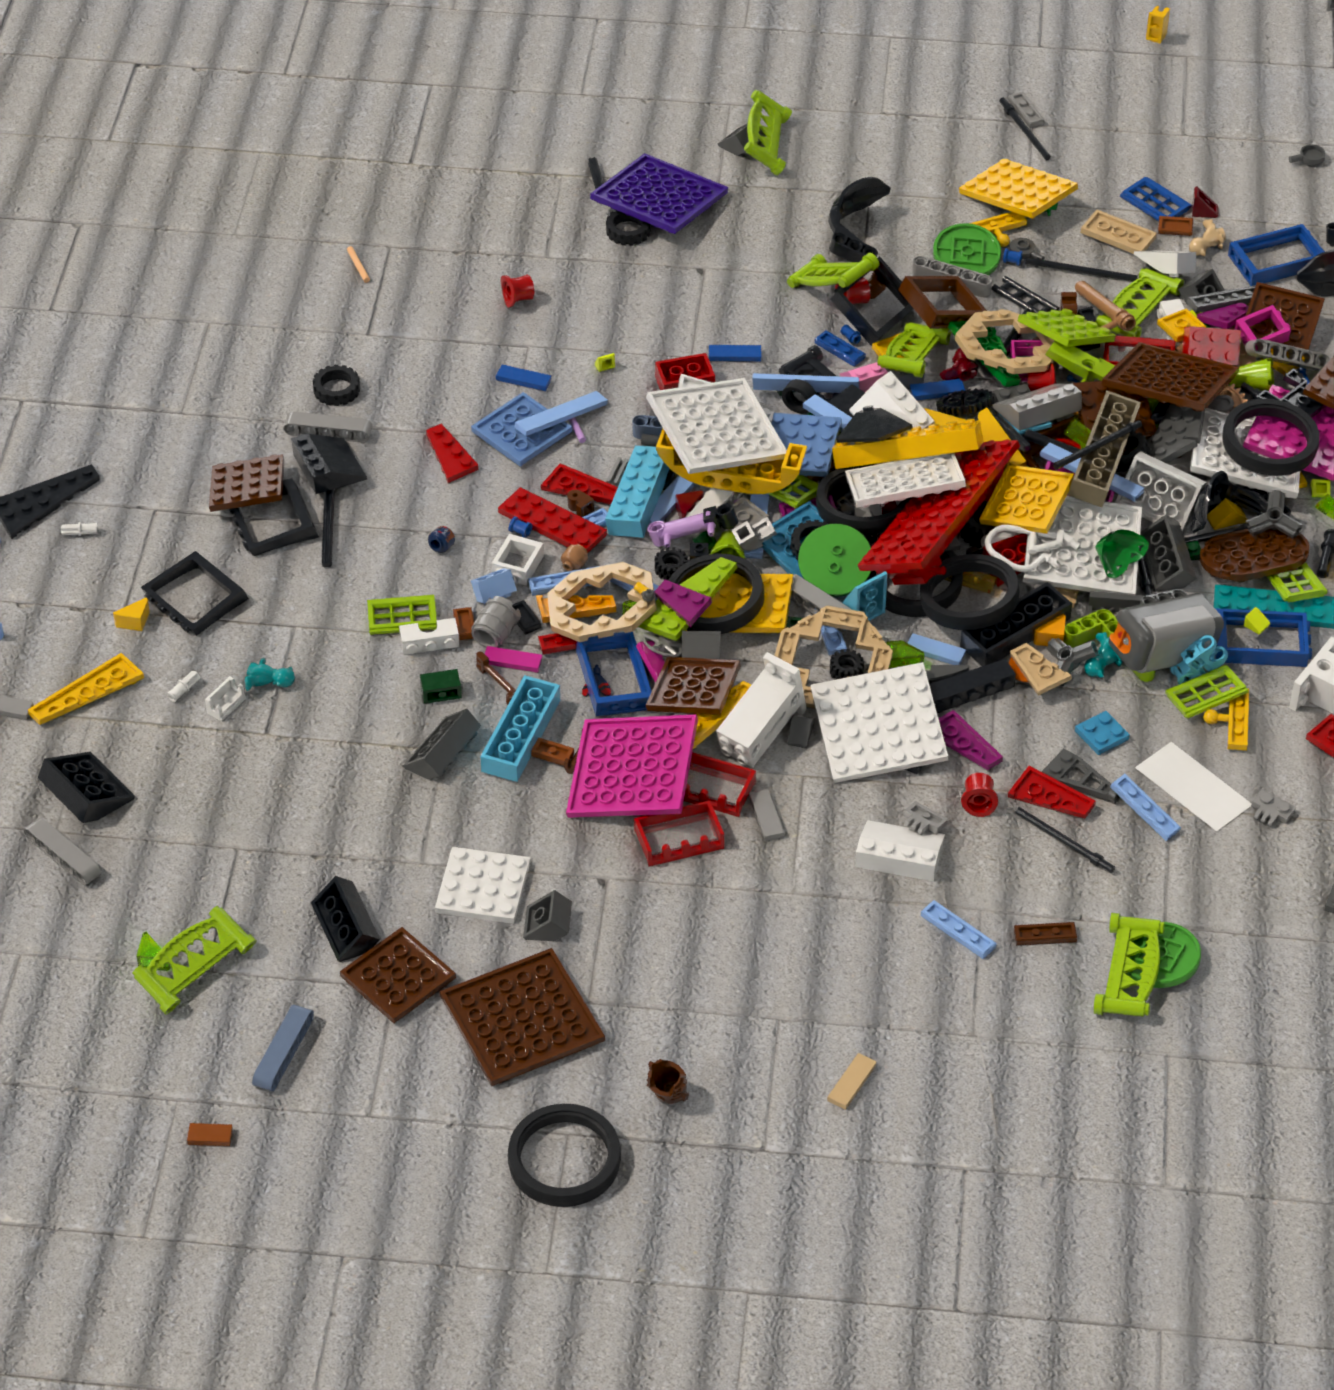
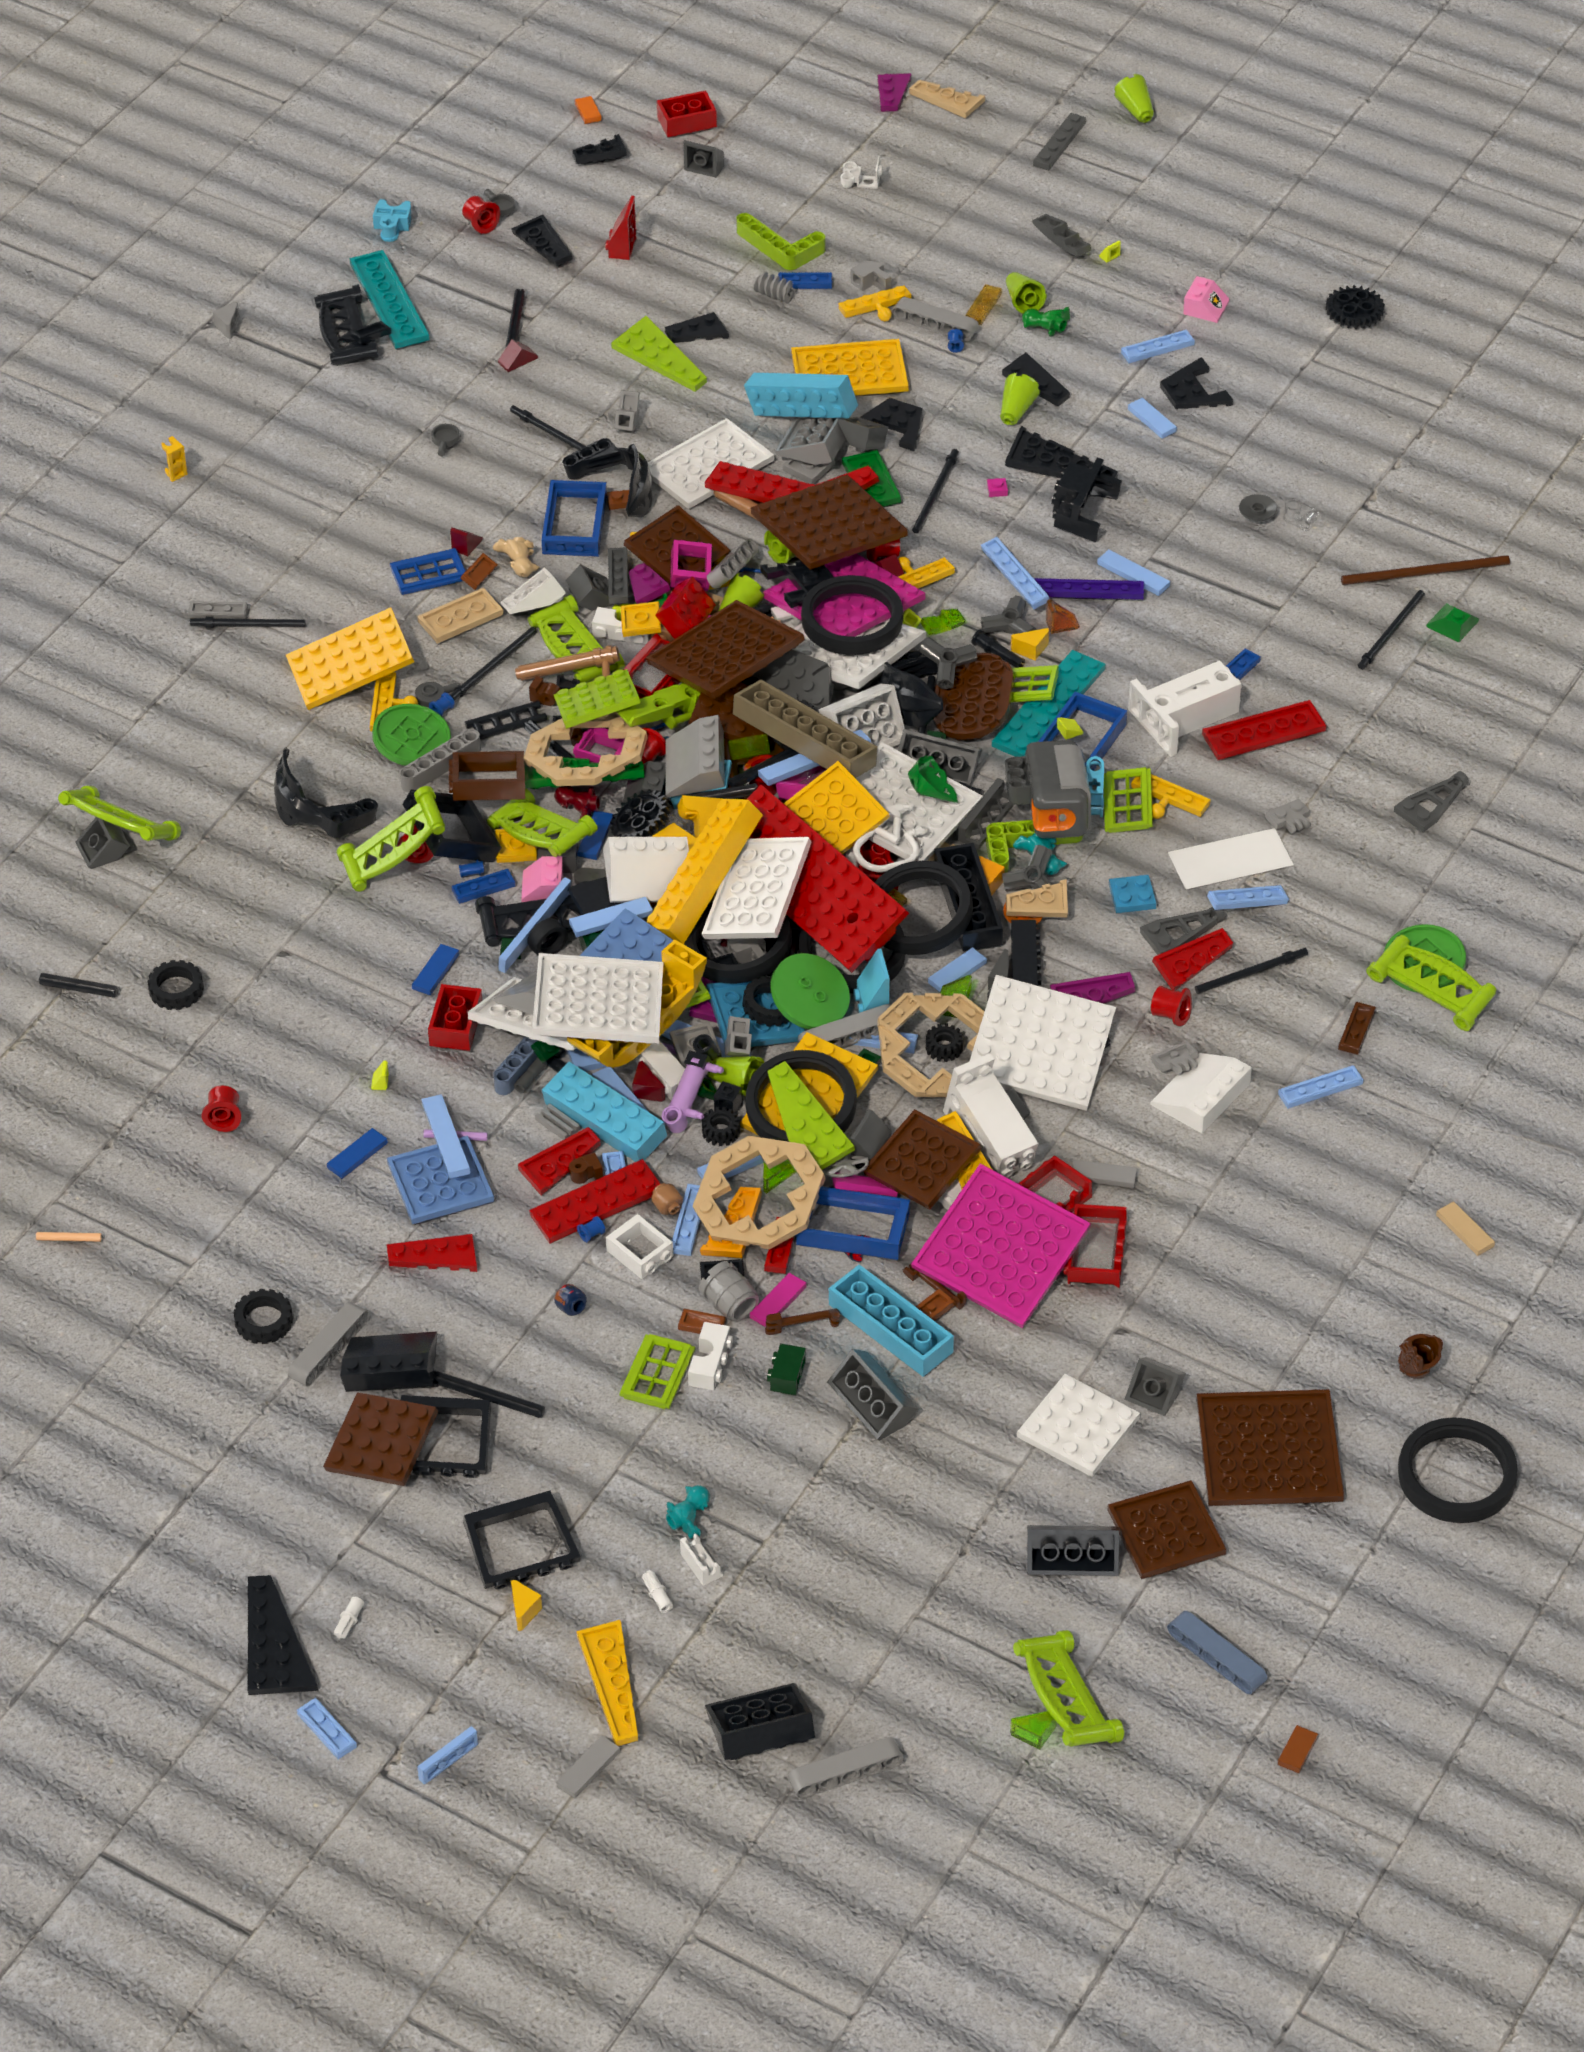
camera: 65 degrees left, 0 degrees up
(493, 584) = (672, 1276): light blue brick -> none
(646, 593) = (790, 1144): arm -> none
(659, 193) = (149, 938): dark purple plate -> none
(684, 601) = (817, 1118): magenta wing -> none
(872, 426) = (671, 884): black slope -> none
(1129, 428) = (799, 698): black bar -> none

